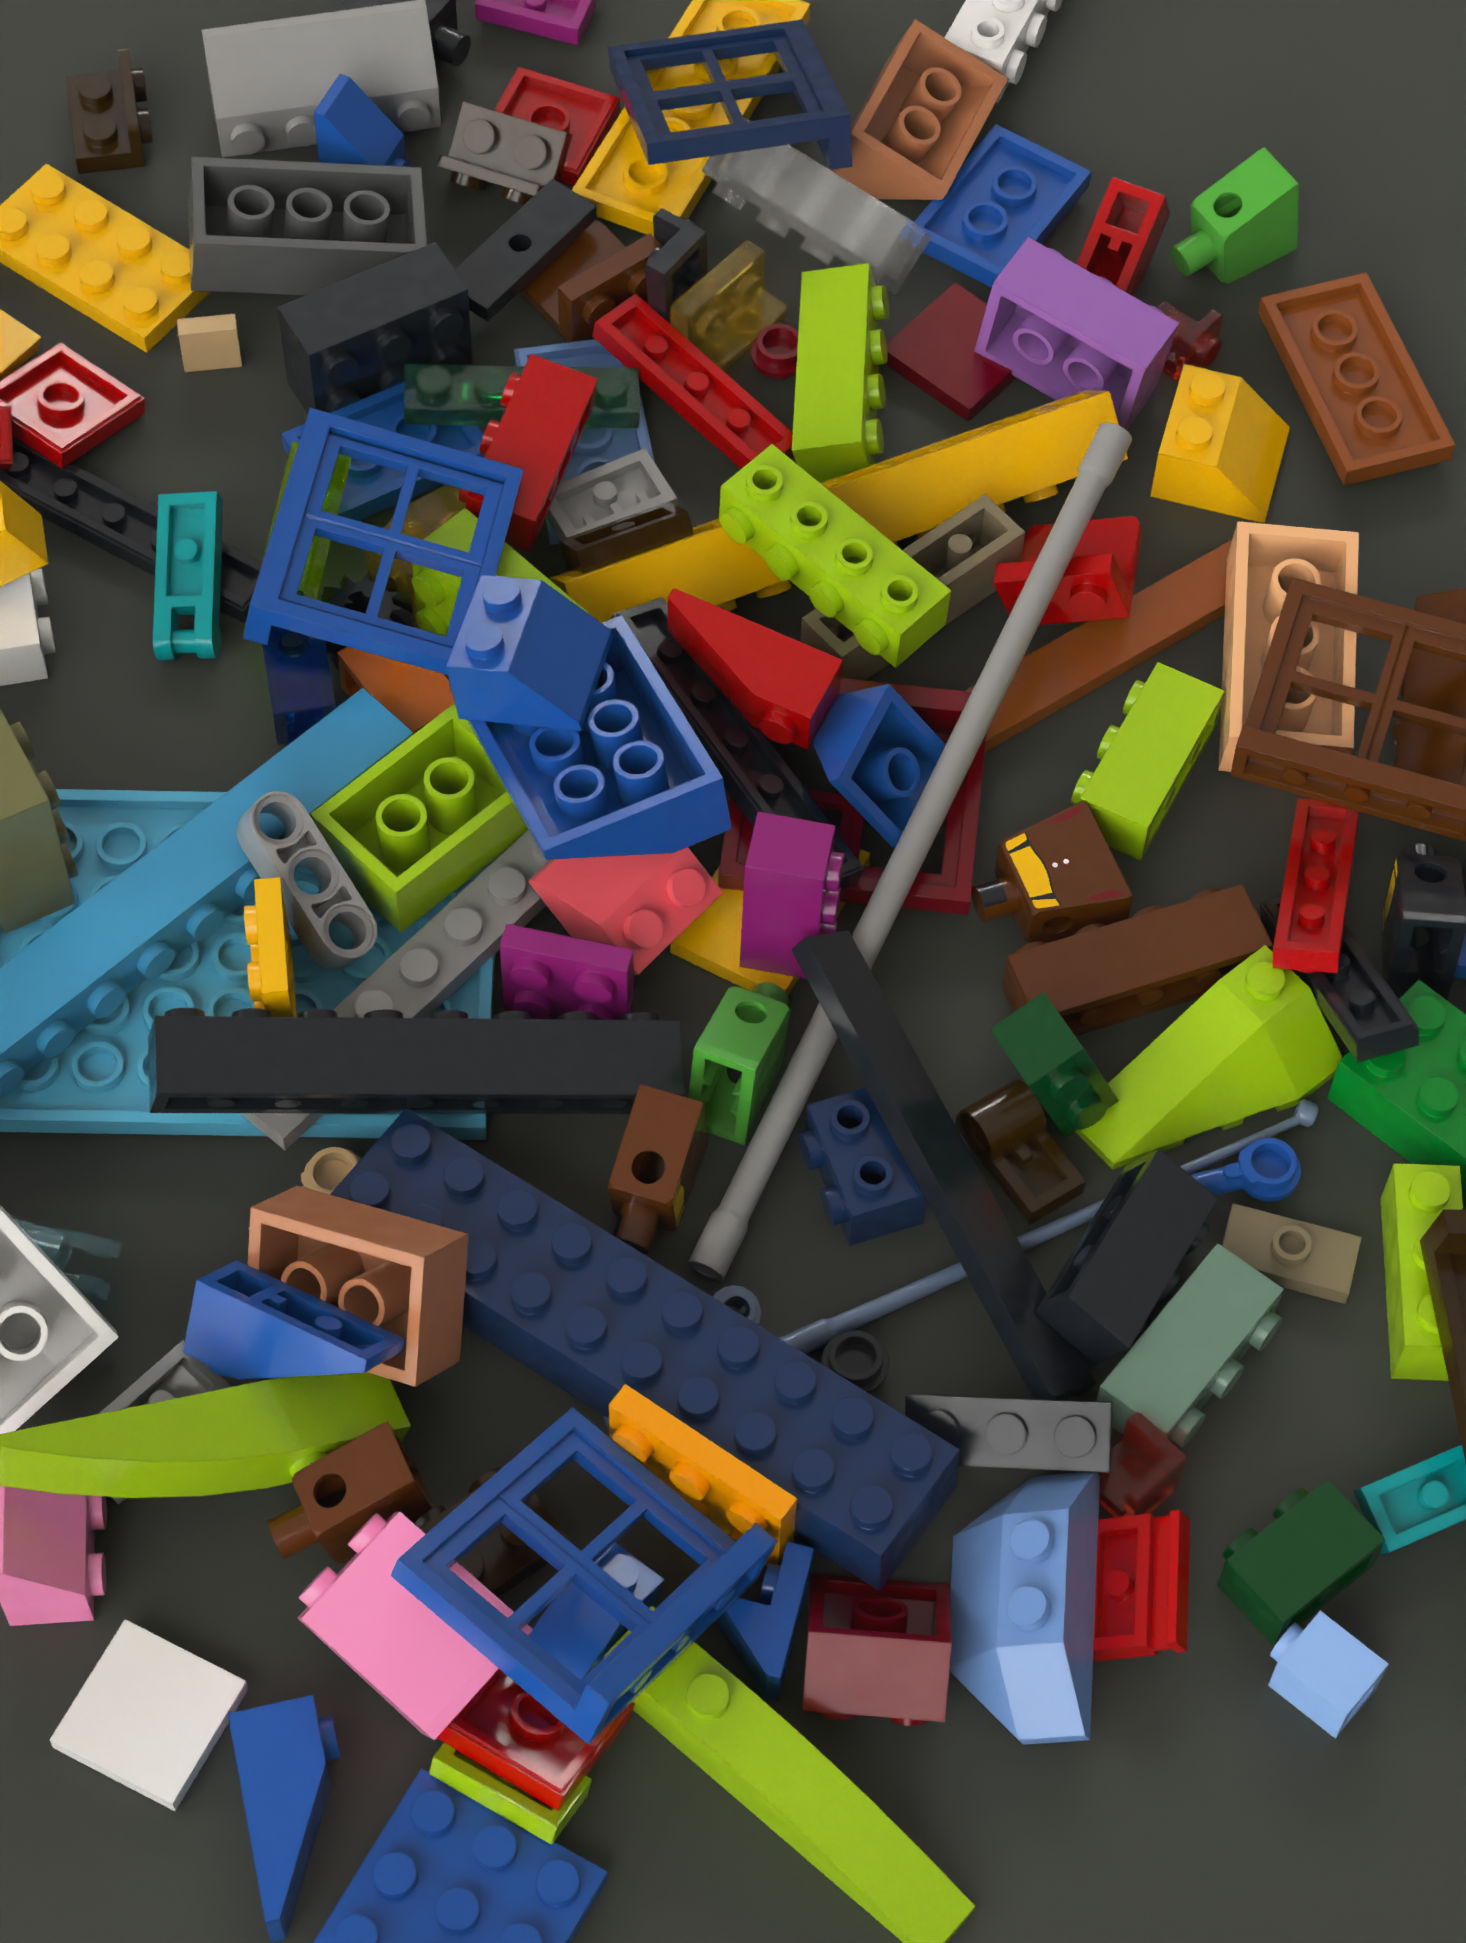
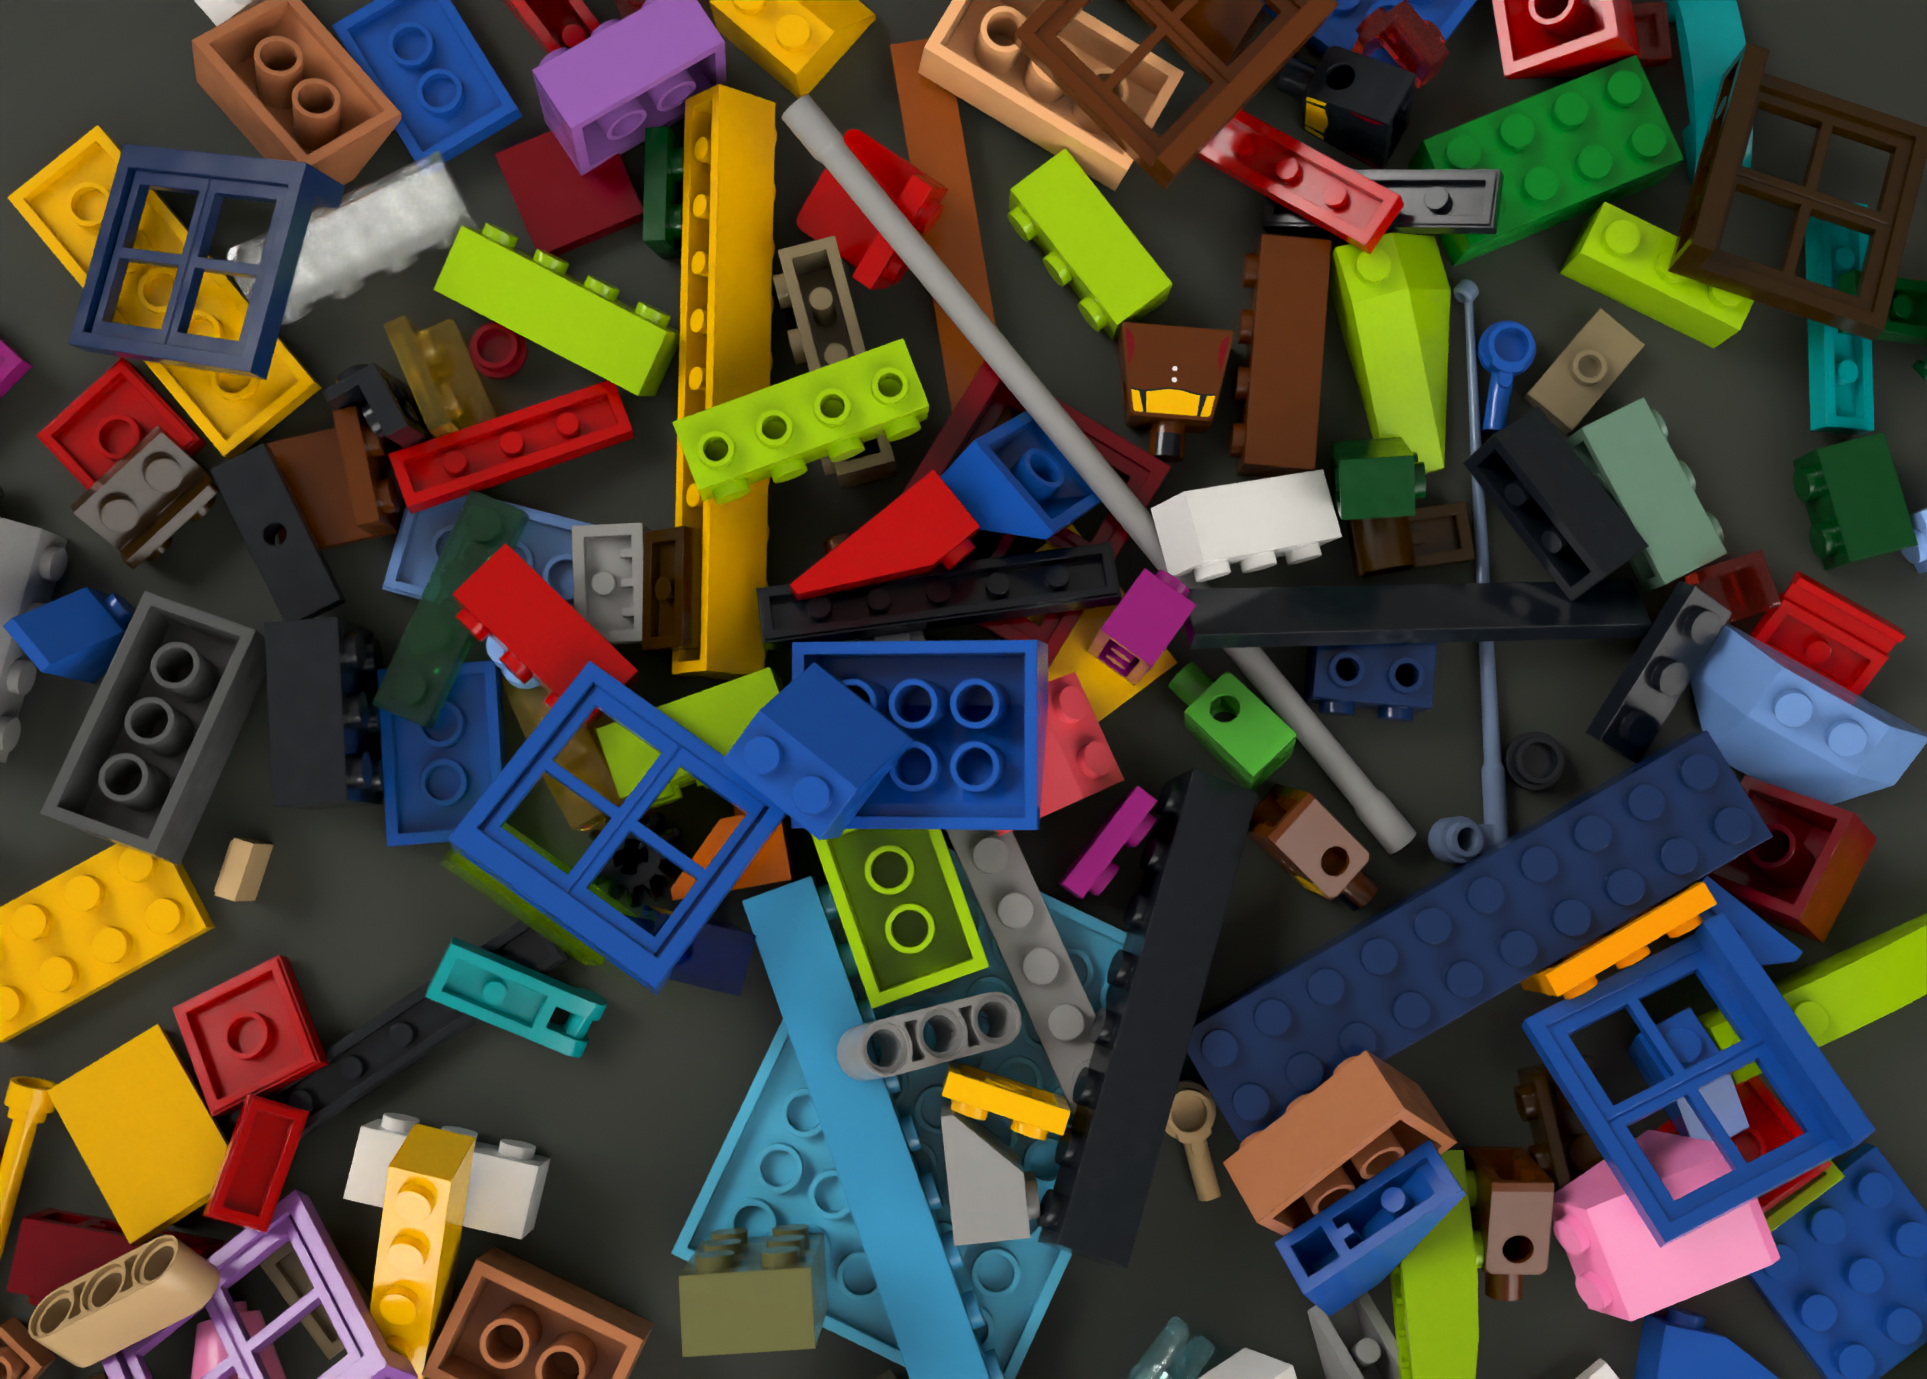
camera: 65 degrees left, 25 degrees up
(188, 961) = (986, 1183): none -> light grey slope
(941, 971) = (1246, 525): none -> white brick
(993, 403) = (663, 192): none -> dark green plate

